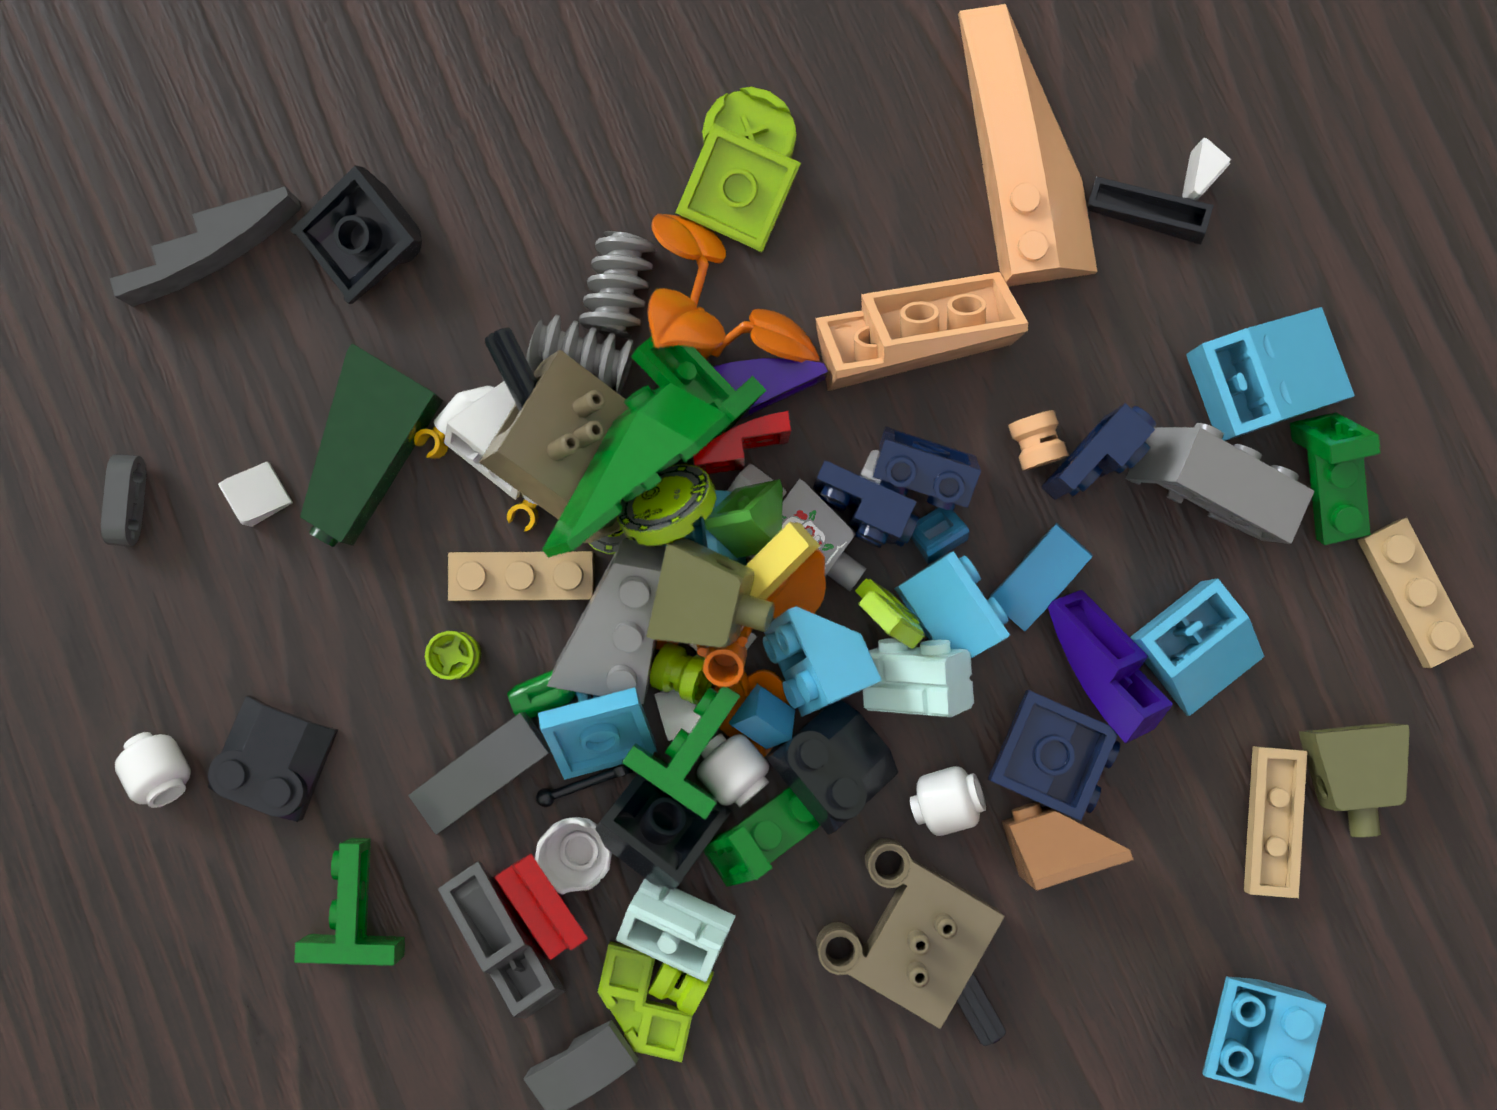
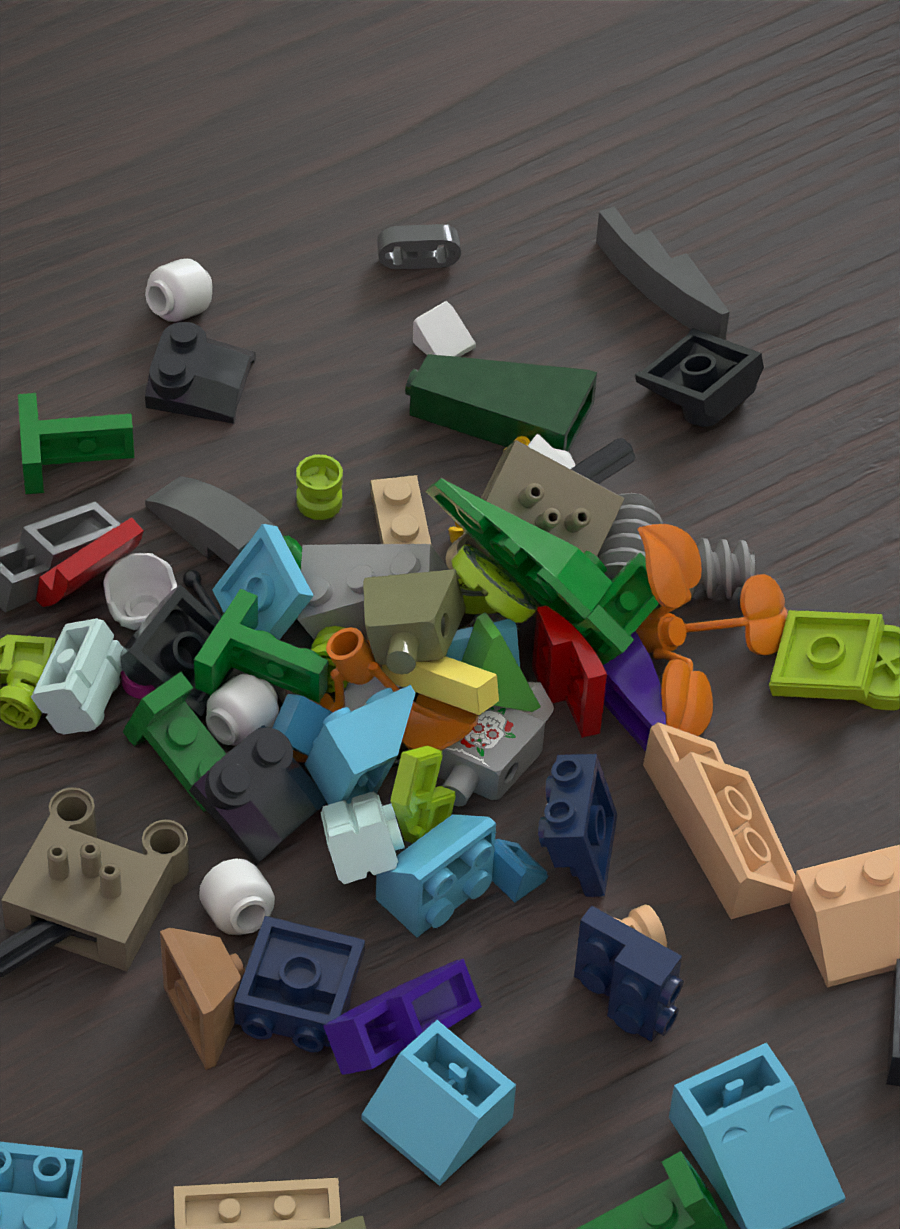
camera: 80 degrees right, 35 degrees down
(879, 512) = (522, 778): dark blue plate -> none
(1041, 576) = (493, 960): dark azure slope -> none
(1224, 481) = (624, 1106): light grey wedge -> none

